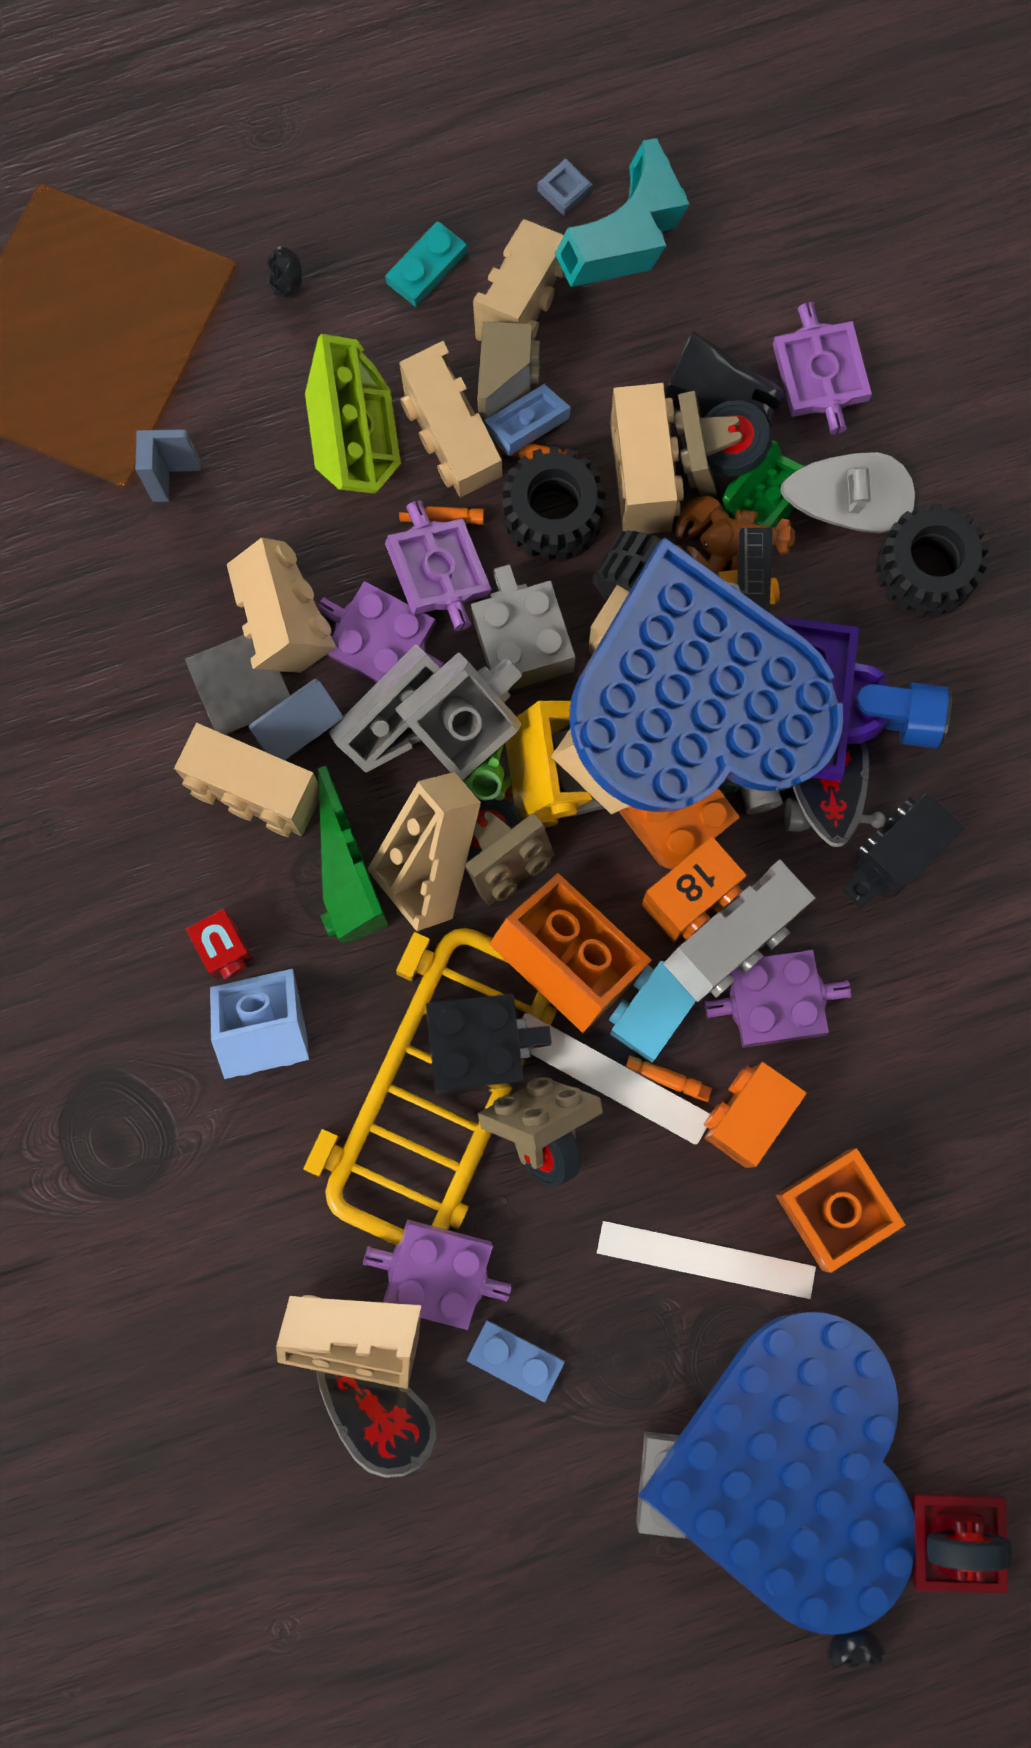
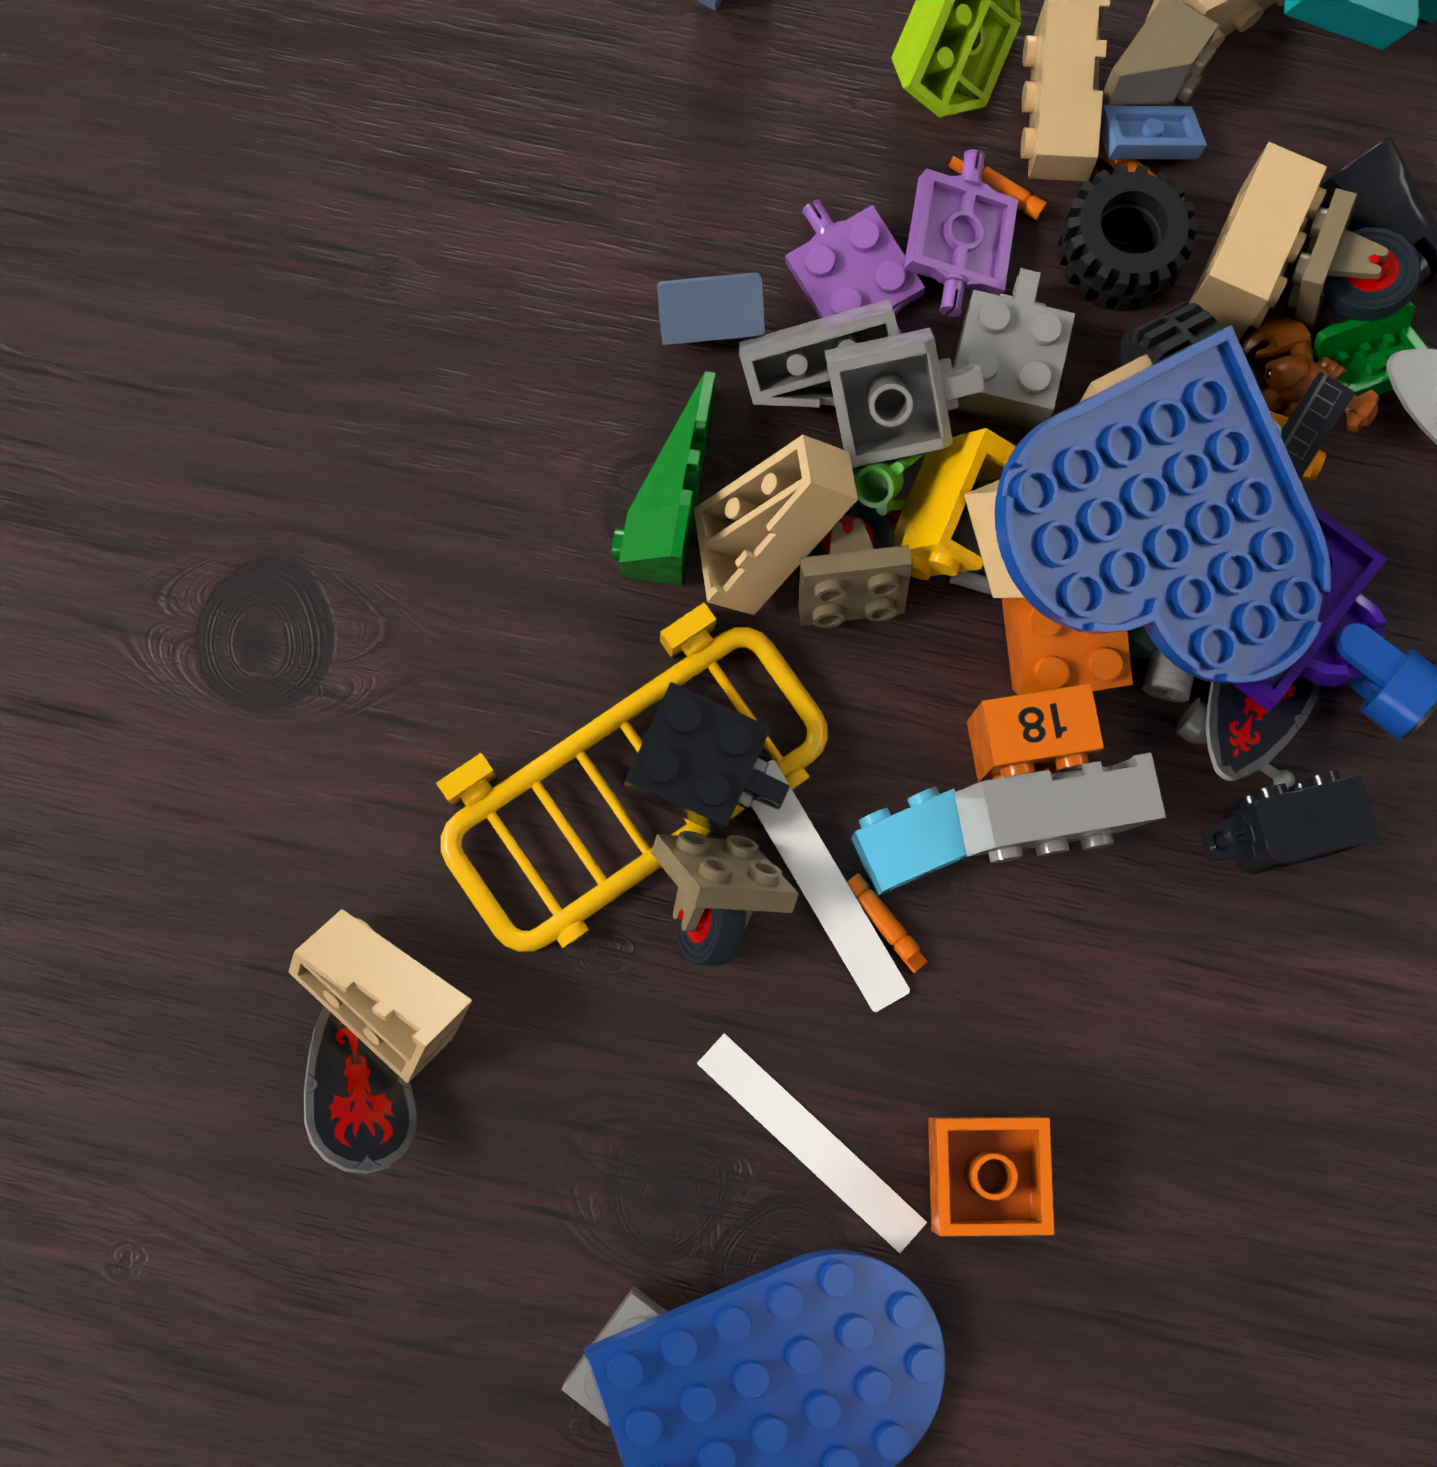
camera: 25 degrees right, 0 degrees up
(220, 945) = (491, 499): red brick -> none
(230, 686) = (674, 233): flat silver slope -> none
(248, 781) = (623, 341): tan brick -> none
(258, 1024) = (480, 605): light blue slope -> none
(279, 608) = (764, 181): tan wedge -> none
(439, 1272) = (514, 981): medium lavender plate -> none
(515, 1360) = (540, 1124): medium blue plate -> none
(569, 952) = (859, 721): orange brick -> none
(753, 1115) = (958, 1015): orange brick -> none
(779, 1000) = (1058, 910): medium lavender plate -> none

